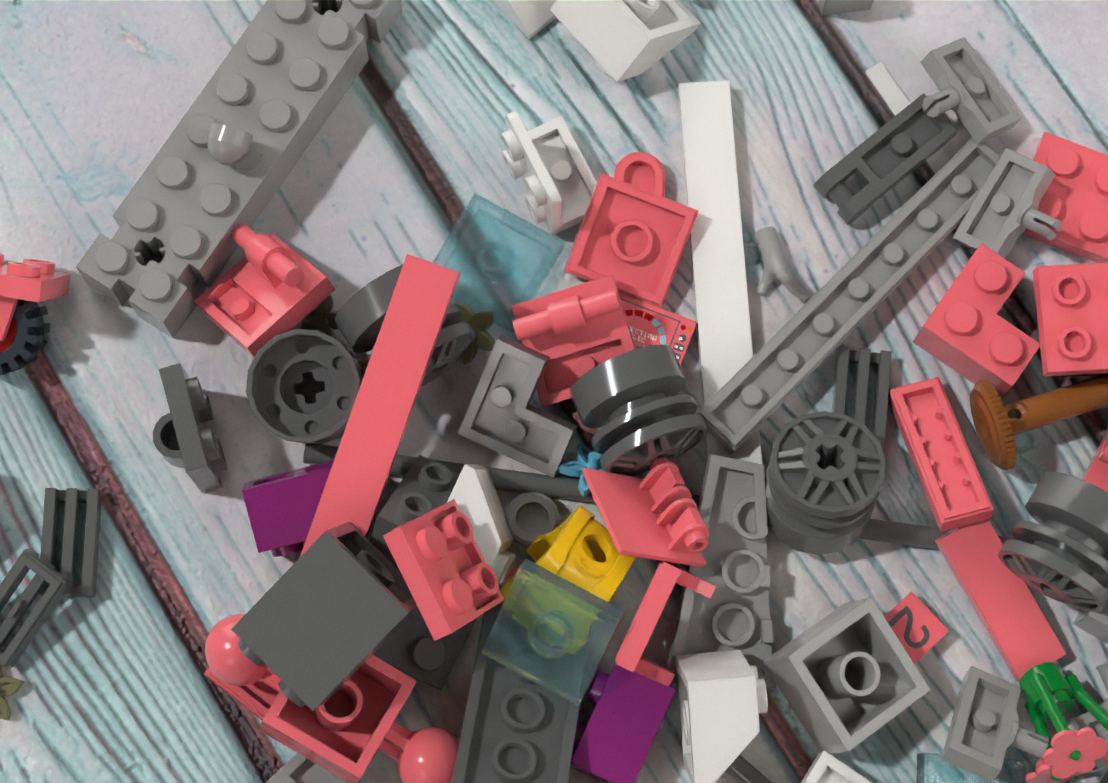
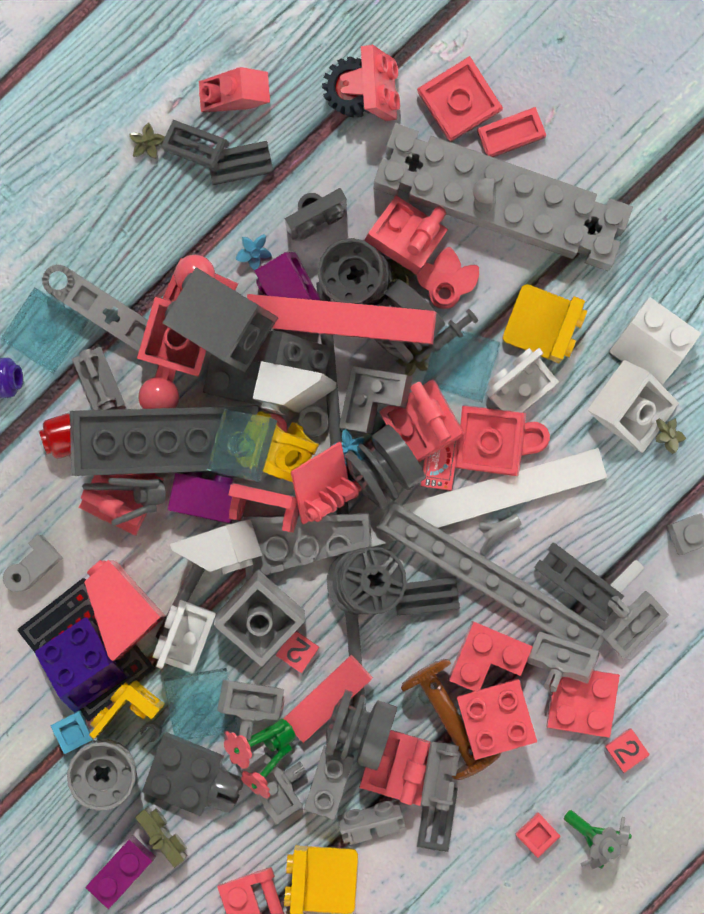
camera: 80 degrees right, 10 degrees up
(66, 167) = (459, 99): none -> coral plate
(142, 102) = (511, 132): none -> coral tile
(225, 552) = (253, 251): none -> medium azure plant
(345, 250) = (447, 274): none -> coral plate
(441, 254) = (448, 334): none -> dark grey piece
(444, 569) = (256, 375): coral plate -> none
(461, 115) = (544, 323): none -> yellow bracket
(940, 454) = (402, 647): coral plate -> none

